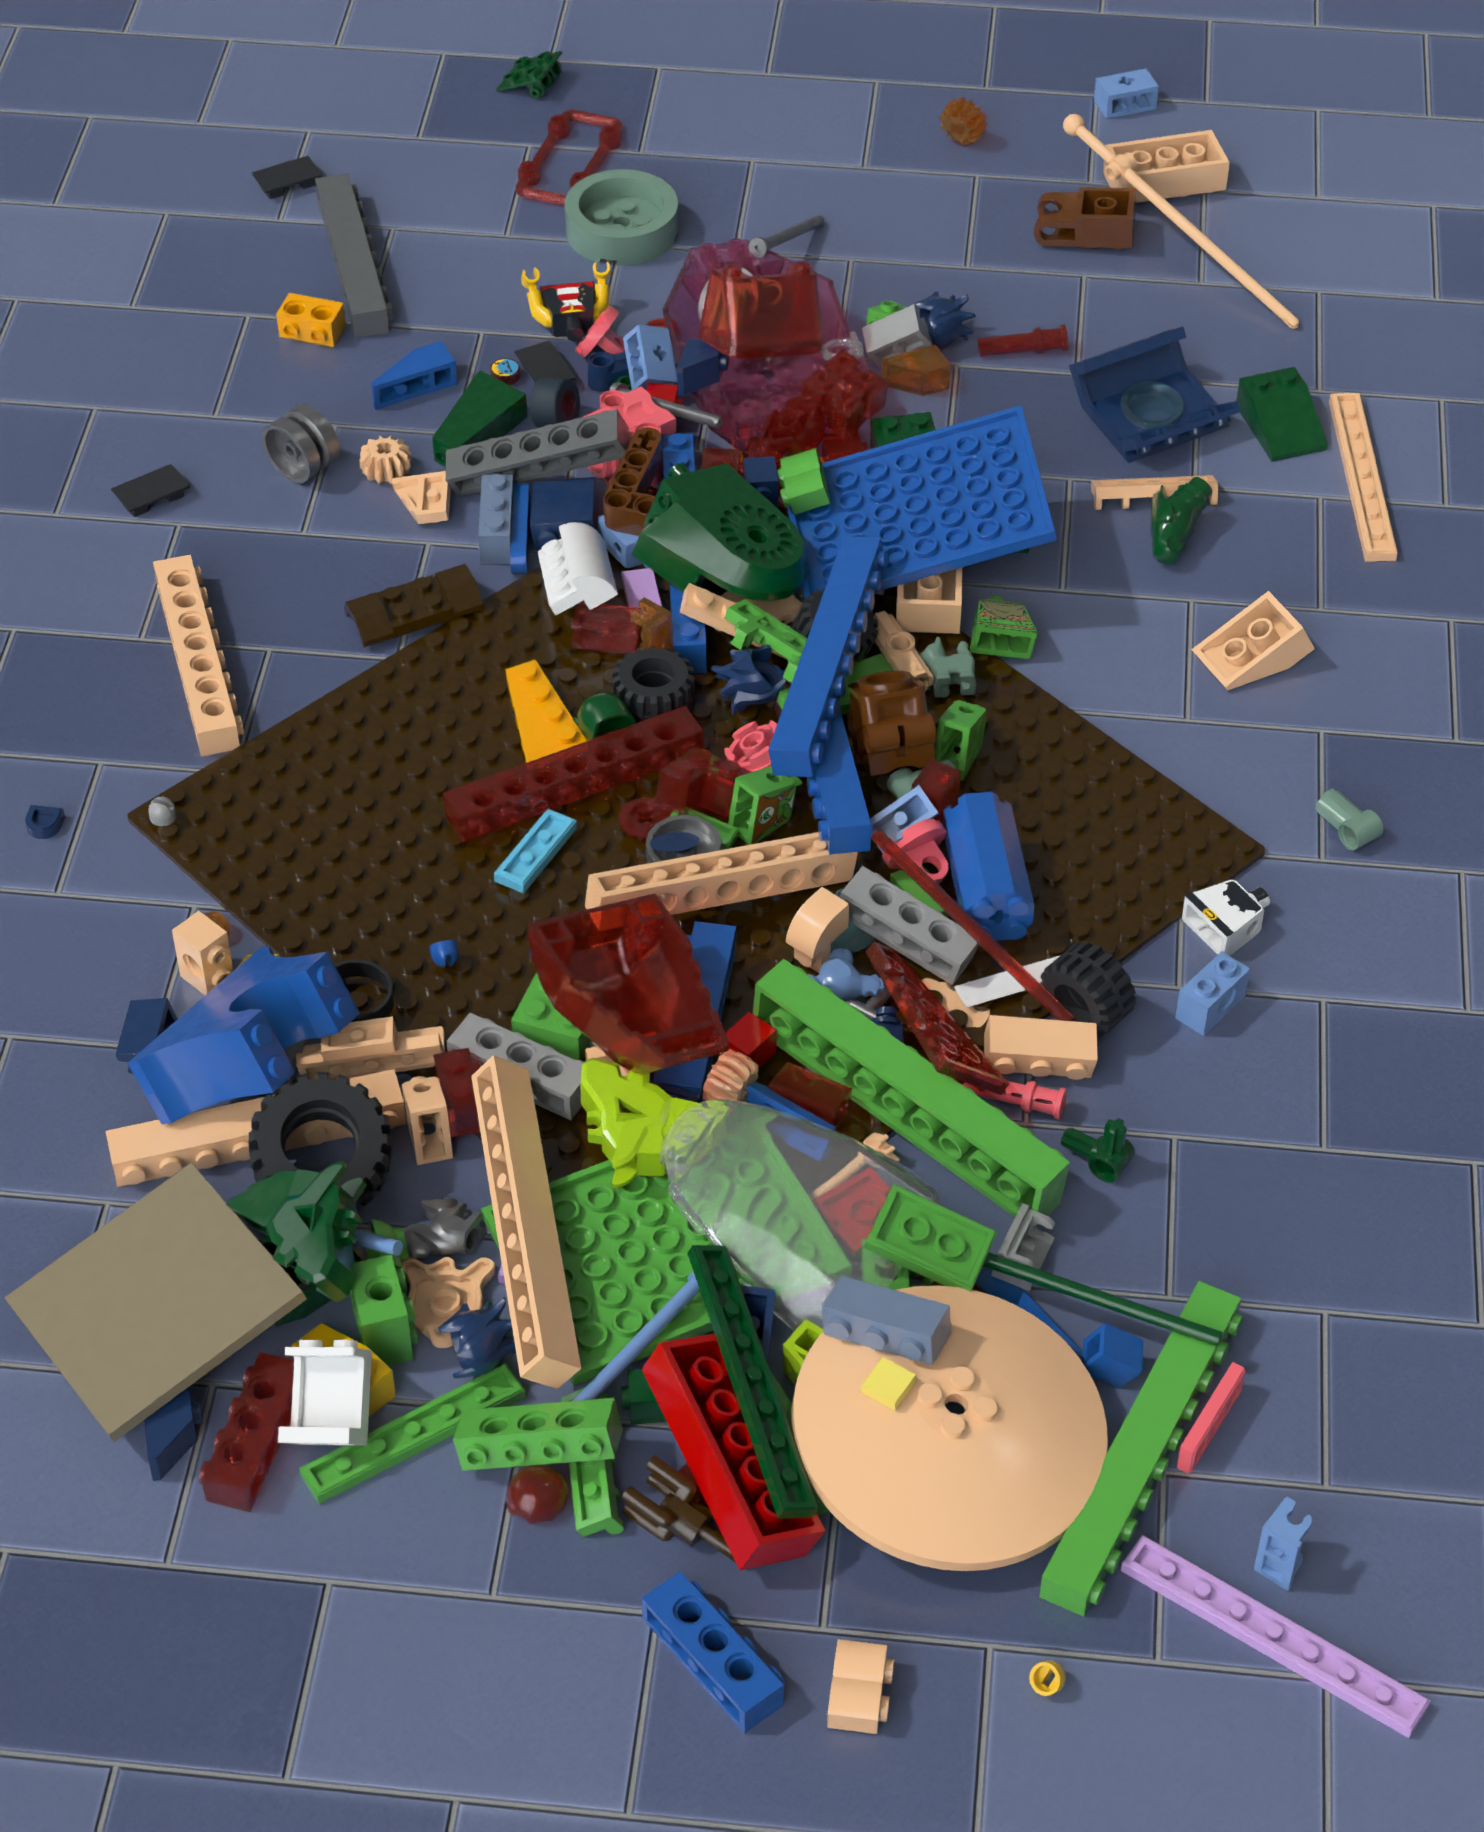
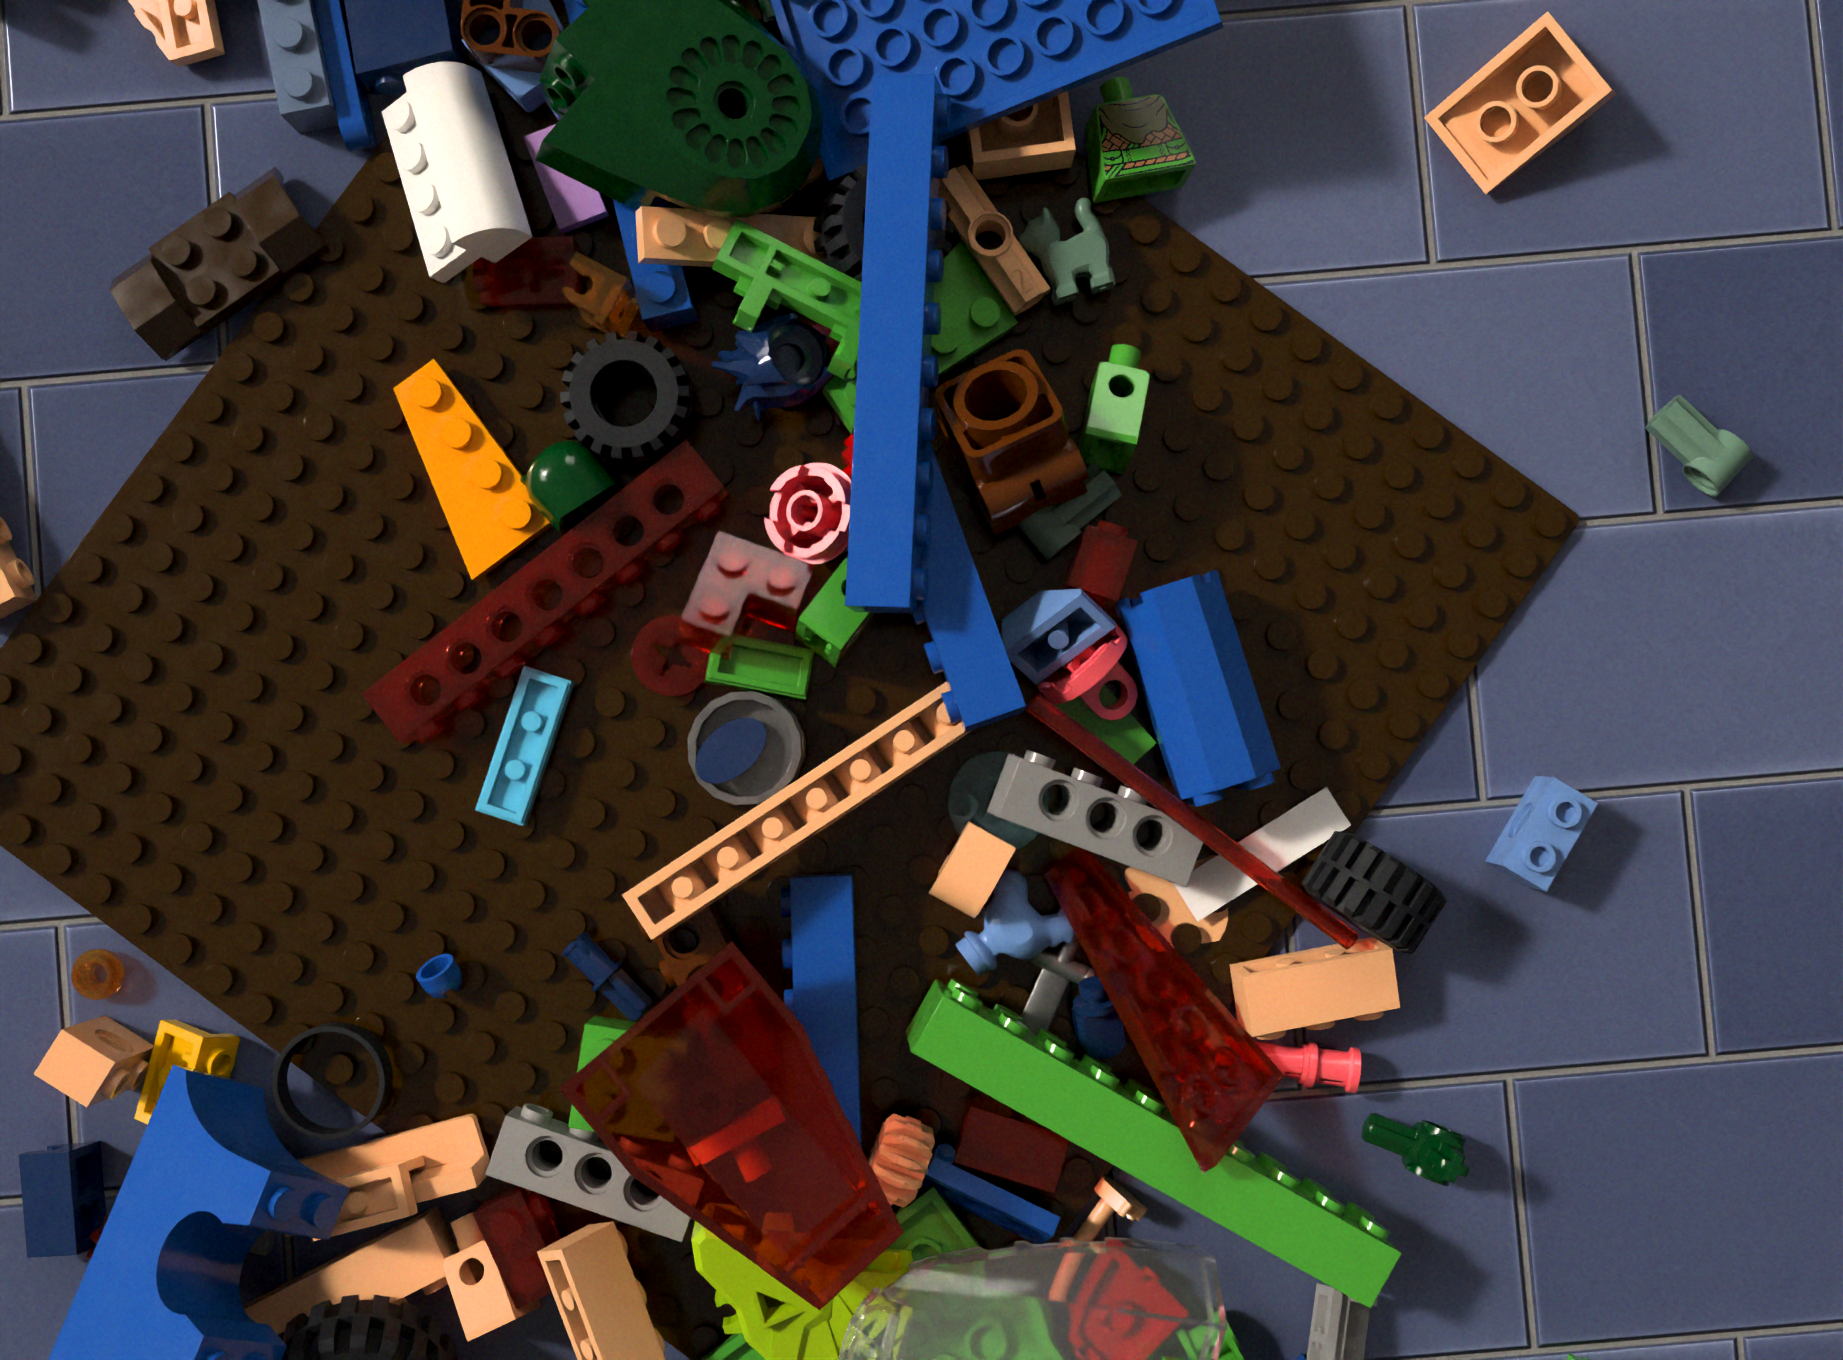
camera: 10 degrees left, 40 degrees up
(753, 1039) = (903, 1078): red brick -> none
(1225, 915) = (1544, 674): white torso -> none

